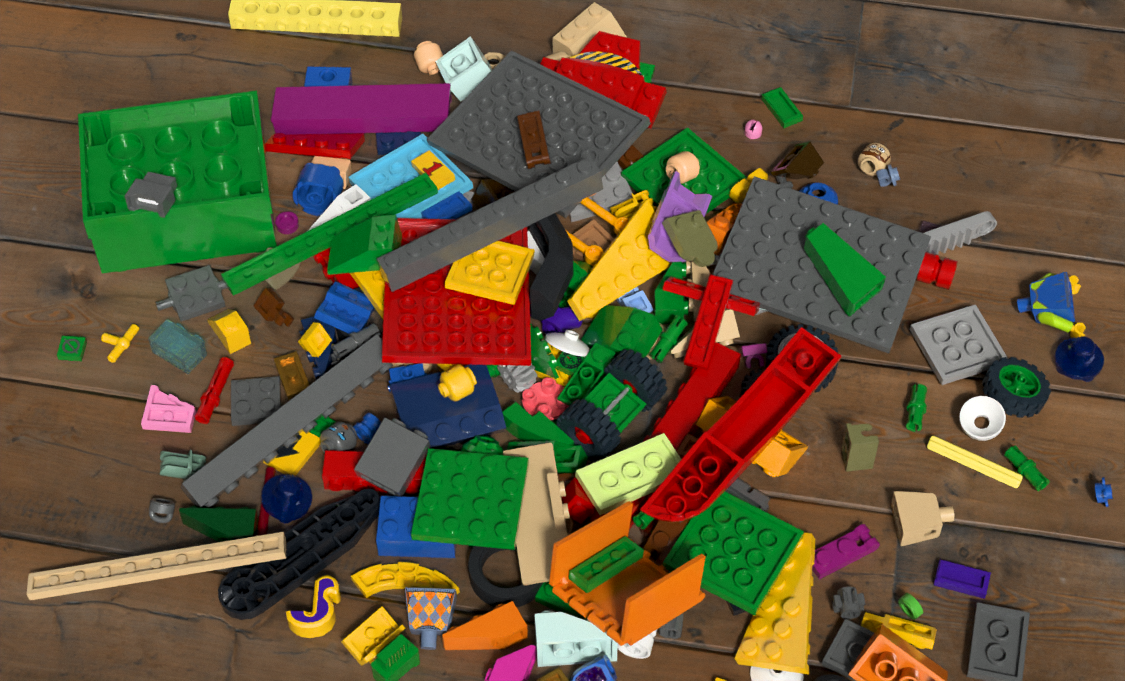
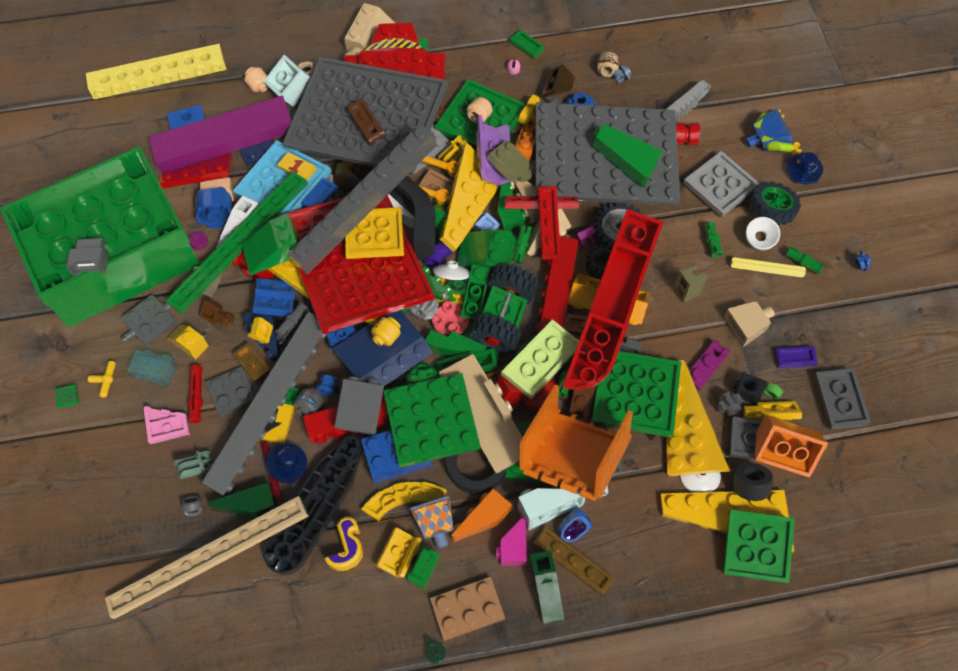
camera: 20 degrees left, 10 degrees up
(606, 564) = (553, 438): green plate -> none
(882, 603) = (756, 384): none -> black brick

